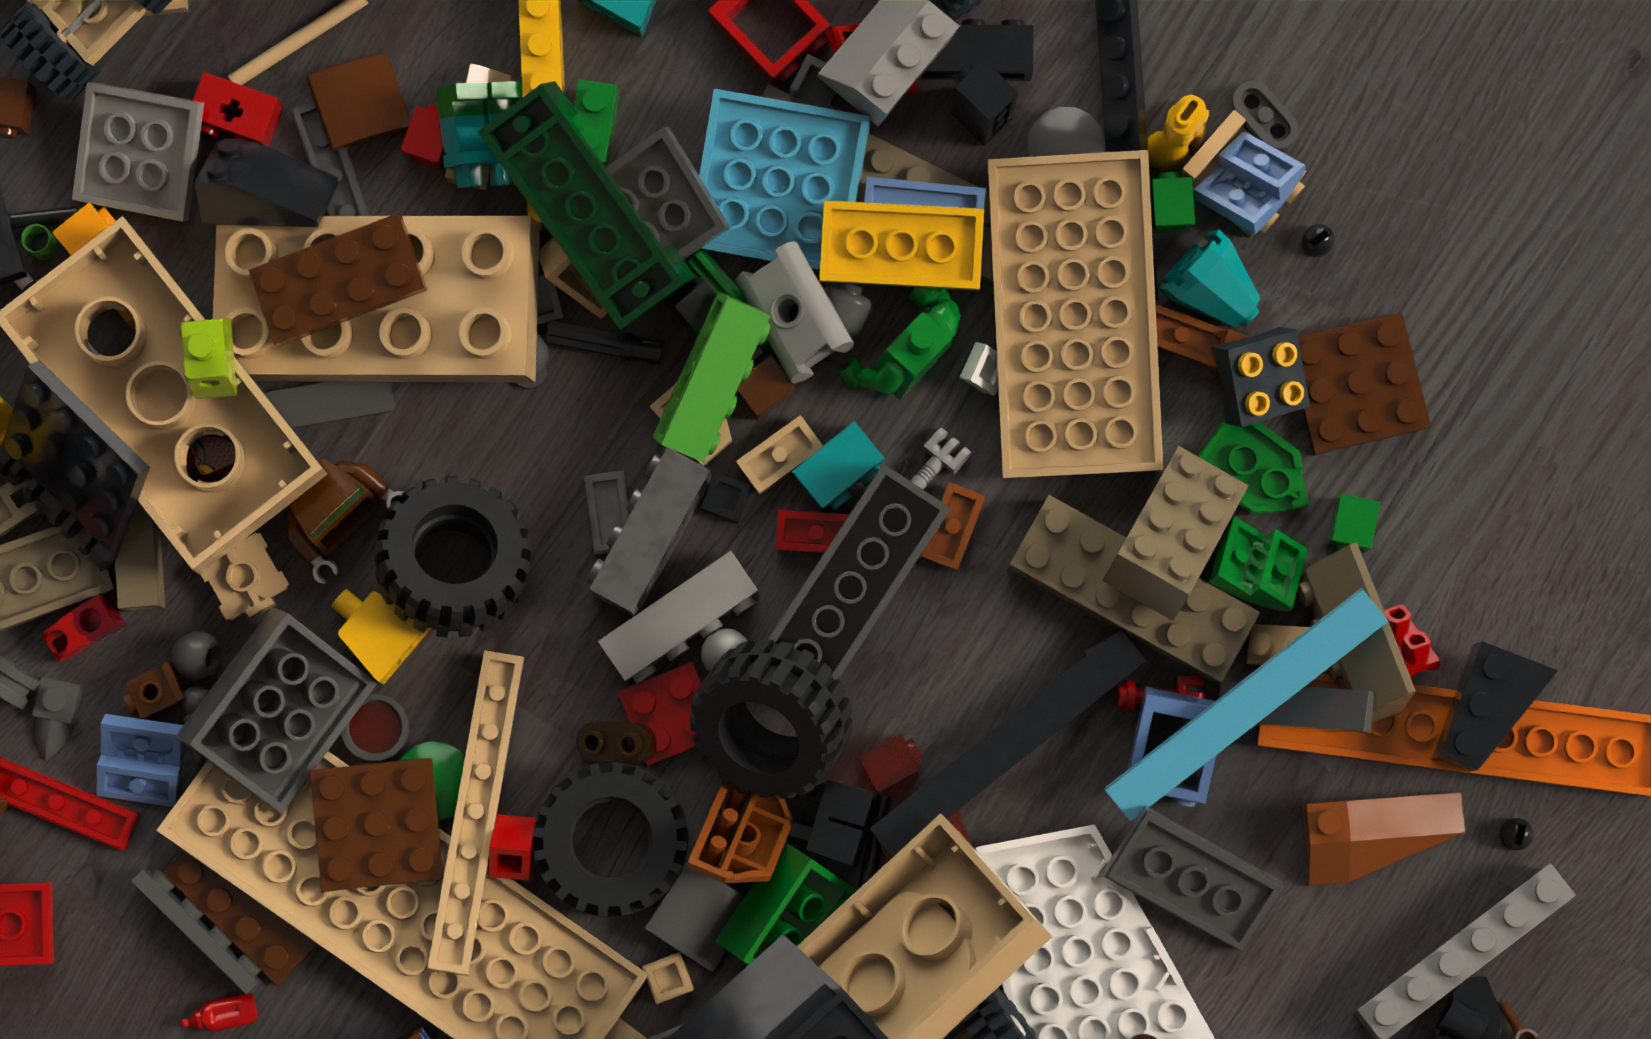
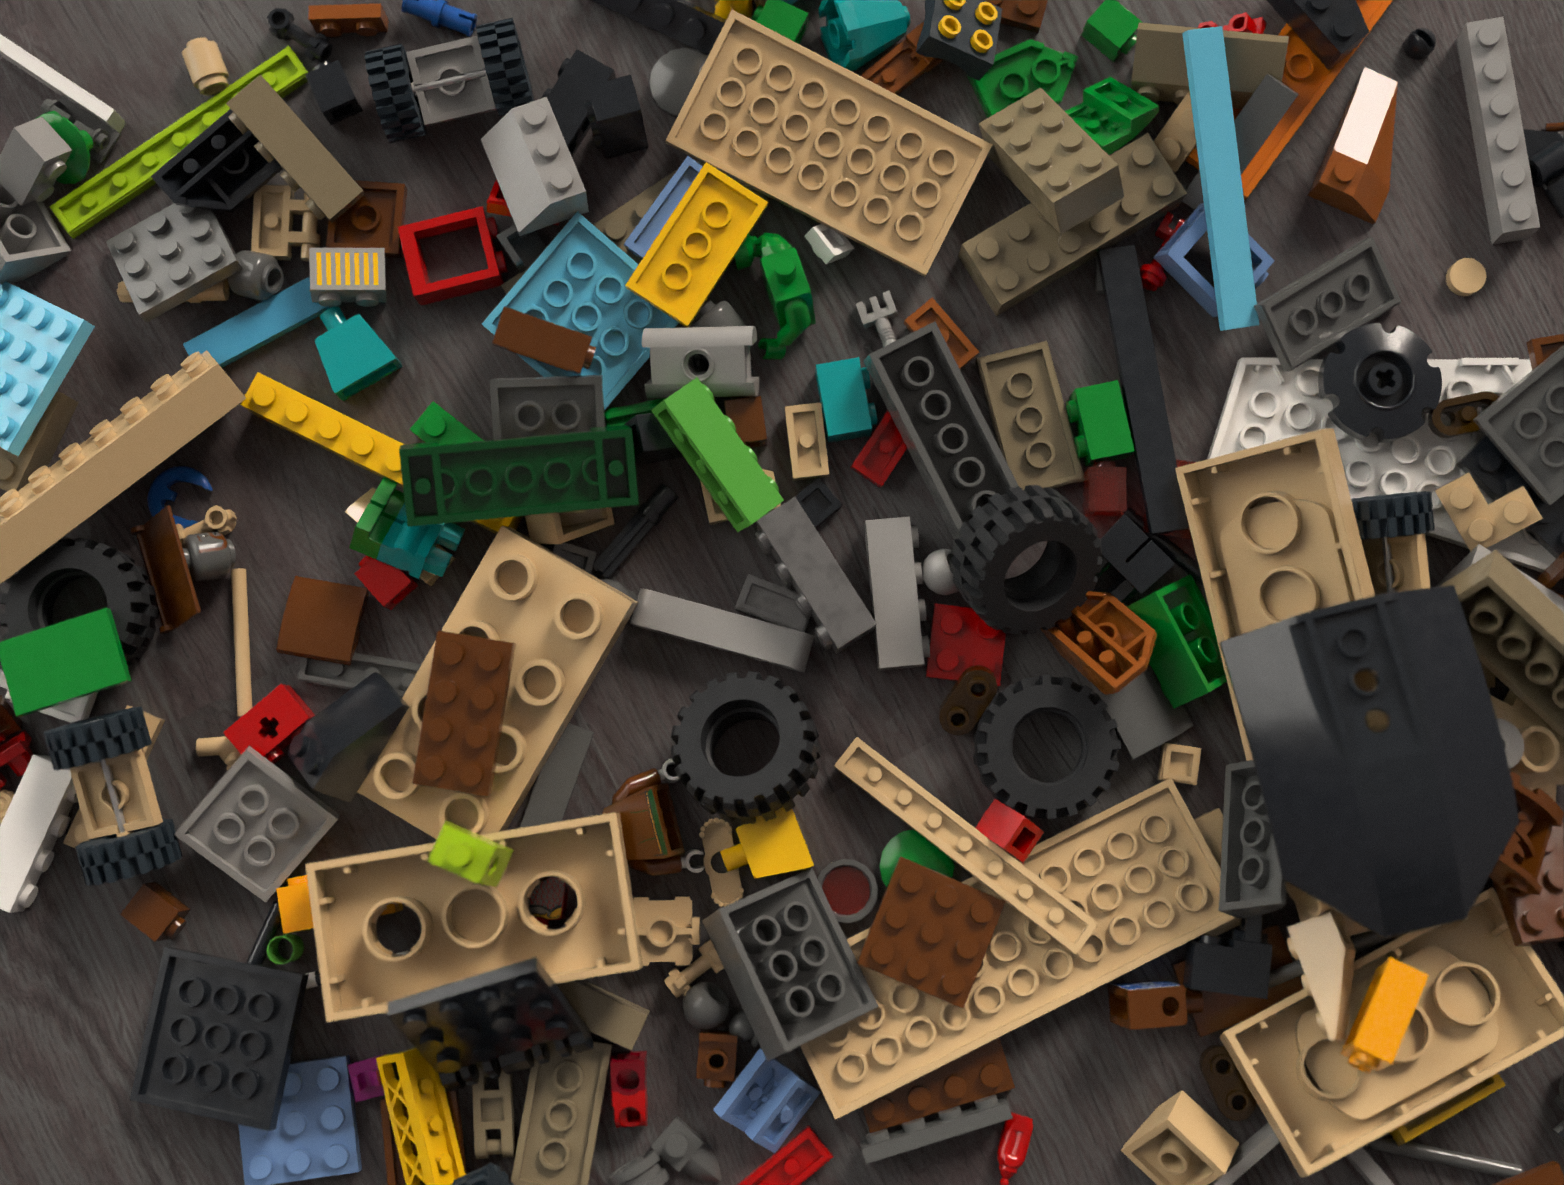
camera: 60 degrees left, 0 degrees up
(190, 73) = (218, 746): none -> tan arm
(205, 619) = (679, 982): none -> tan bar
(318, 614) = (725, 886): none -> tan piece
(554, 476) = (722, 630): none -> light grey beam
(724, 155) = (543, 341): none -> reddish brown window
(922, 655) = (1030, 416): none -> dark tan tile
(953, 723) = (1100, 423): none -> green brick
(1156, 998) = (1353, 376): none -> black piece
(1303, 1003) = (1466, 277): none -> tan tile

